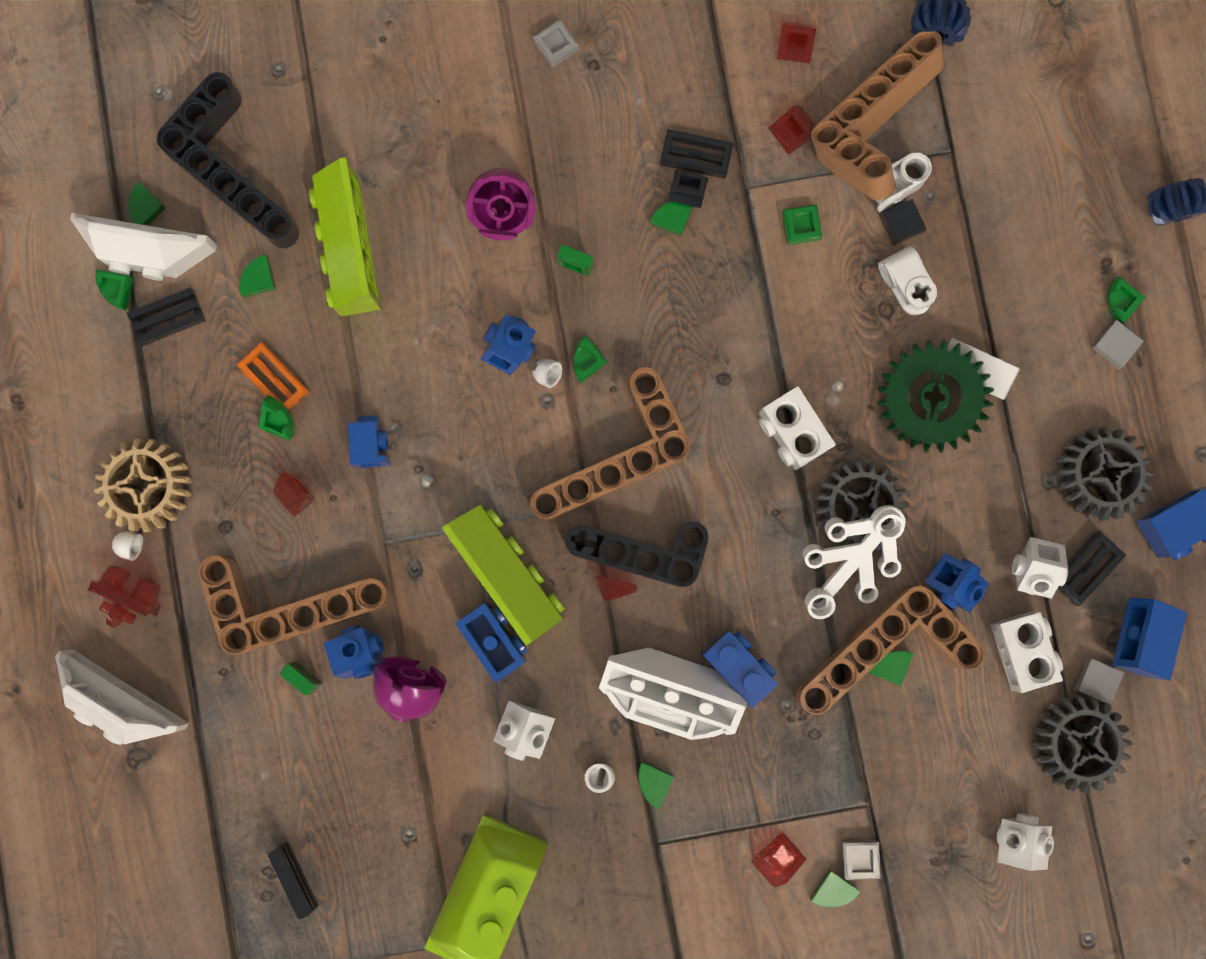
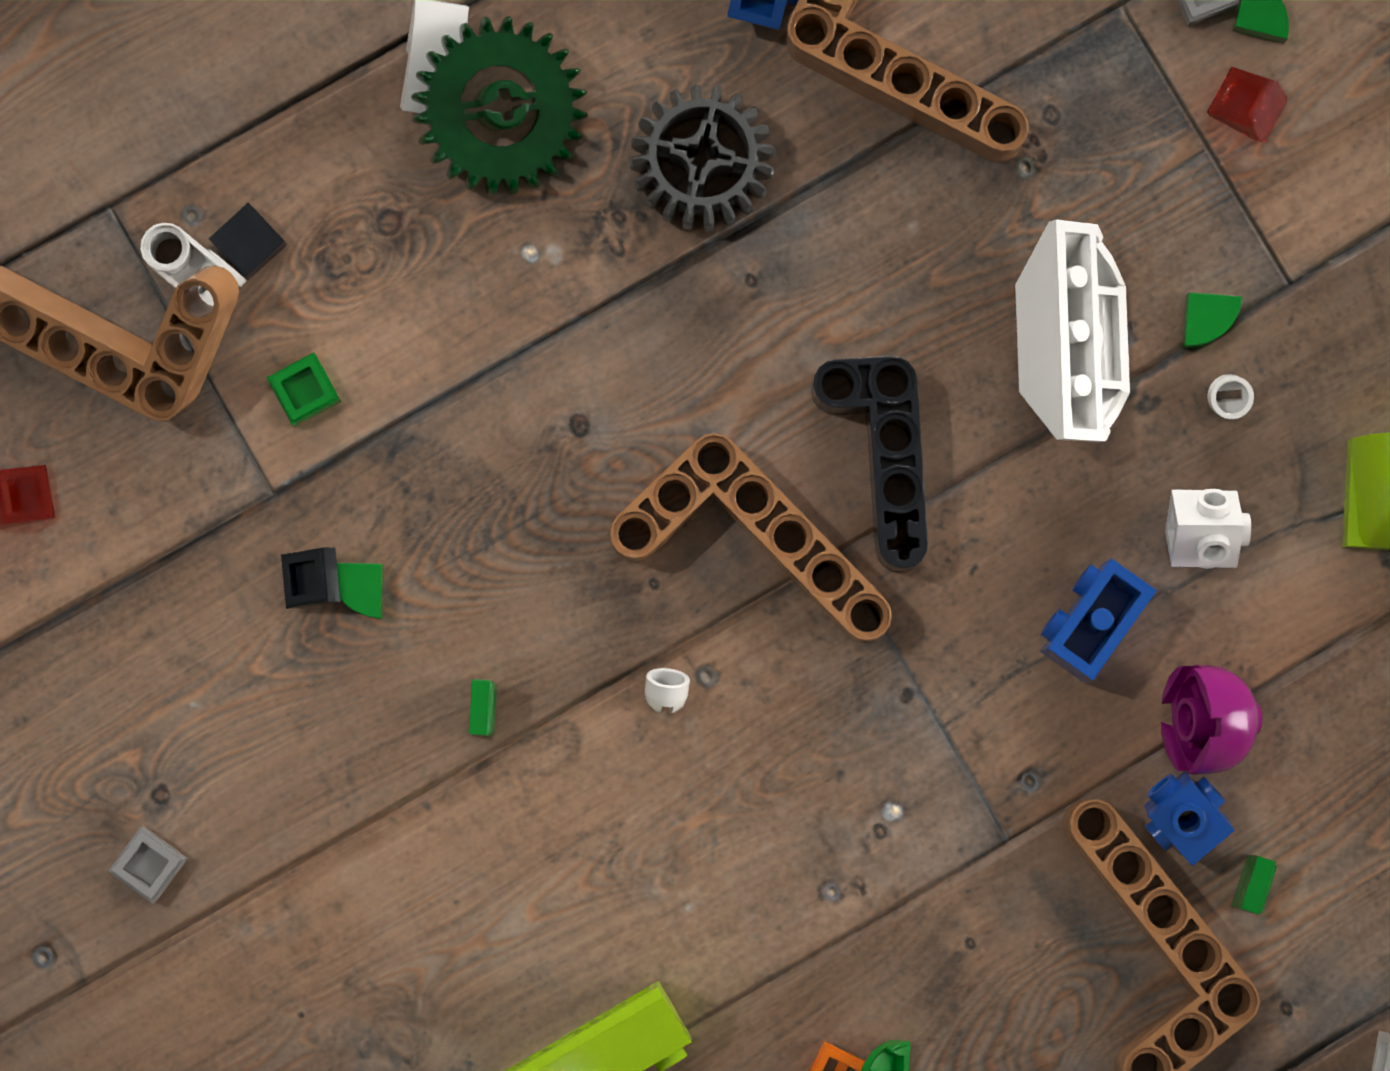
camera: 115 degrees left, 0 degrees up
(292, 493) = (988, 1004): clear red slope -> none
(367, 443) = (871, 917): blue brick -> none
(500, 204) = (438, 849): magenta cylinder -> none
(504, 574) = (992, 638): lime slope -> none
(508, 344) = (647, 760): blue brick -> none
(587, 360) = (625, 637): green tile -> none
(614, 589) = (952, 471): clear red slope -> none
(693, 166) = (254, 631): black tile -> none
(746, 675) = (1001, 251): blue brick -> none
(793, 129) = (158, 452): clear red slope -> none
(804, 424) = (608, 283): white brick -> none
(855, 557) = (781, 141): white plant -> none
(893, 667) = (914, 33): green tile -> none
(906, 276) = (330, 212): white piece -> none

